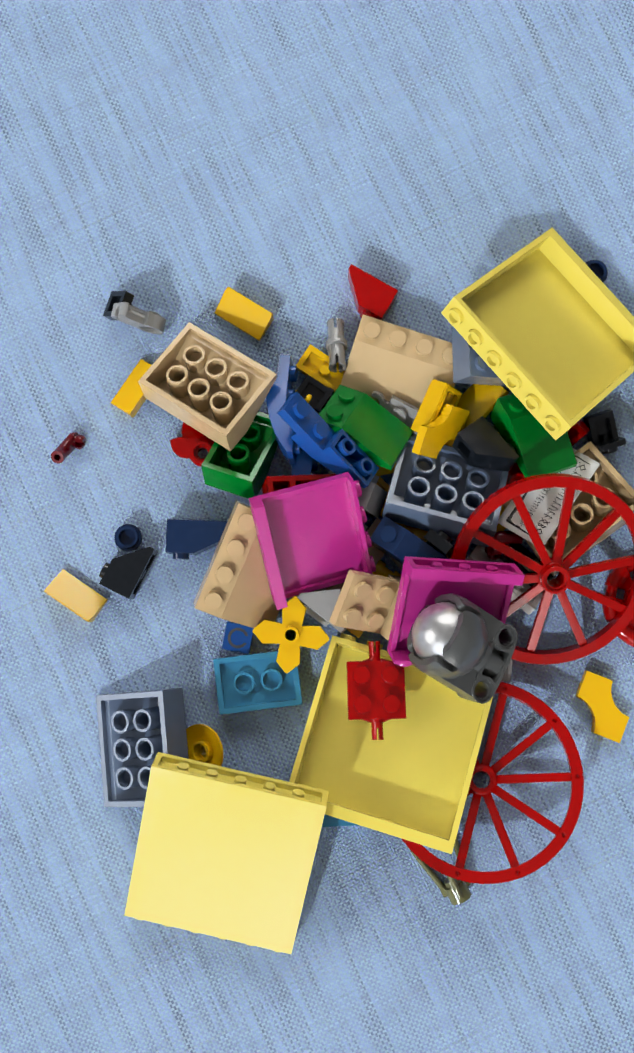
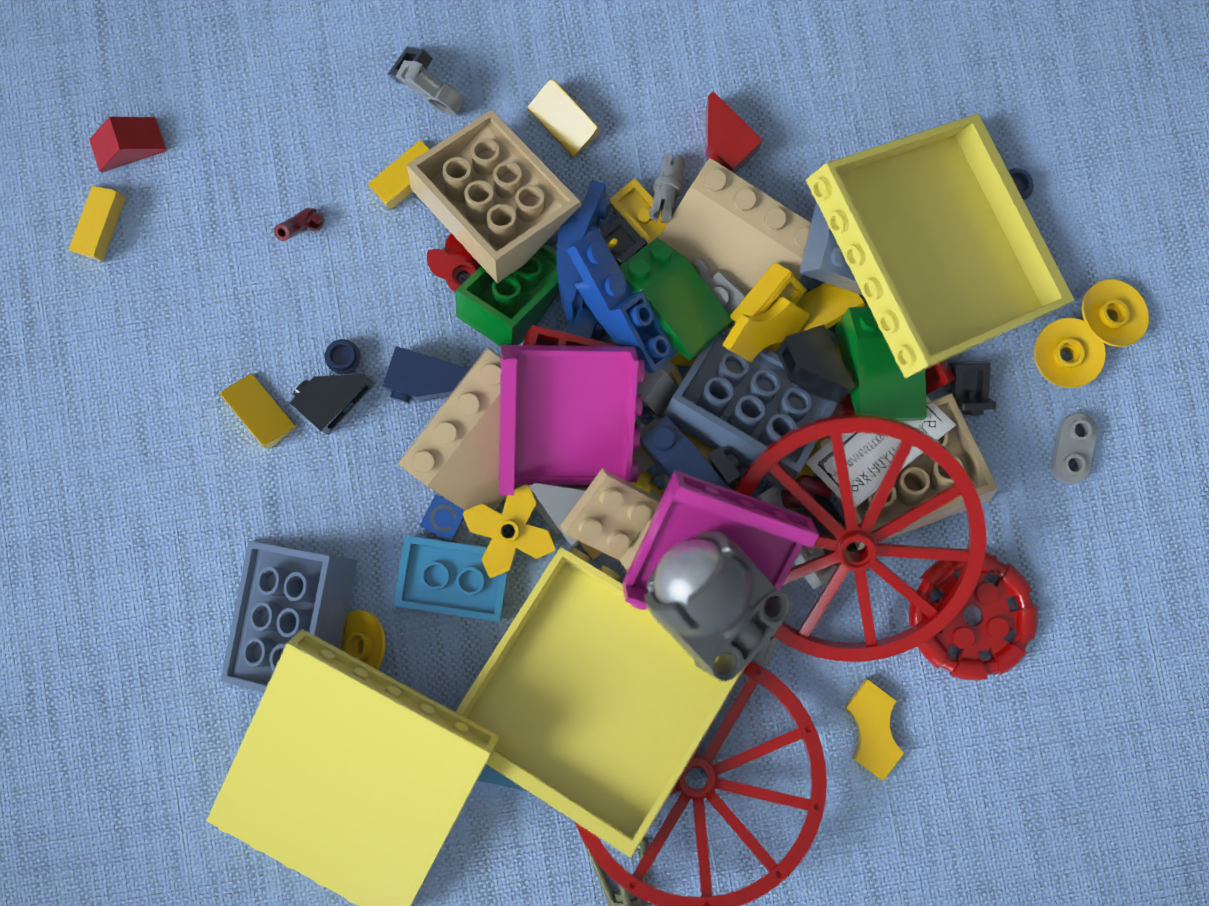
camera: 15 degrees right, 0 degrees up
(375, 690) = (594, 629): red plate -> none

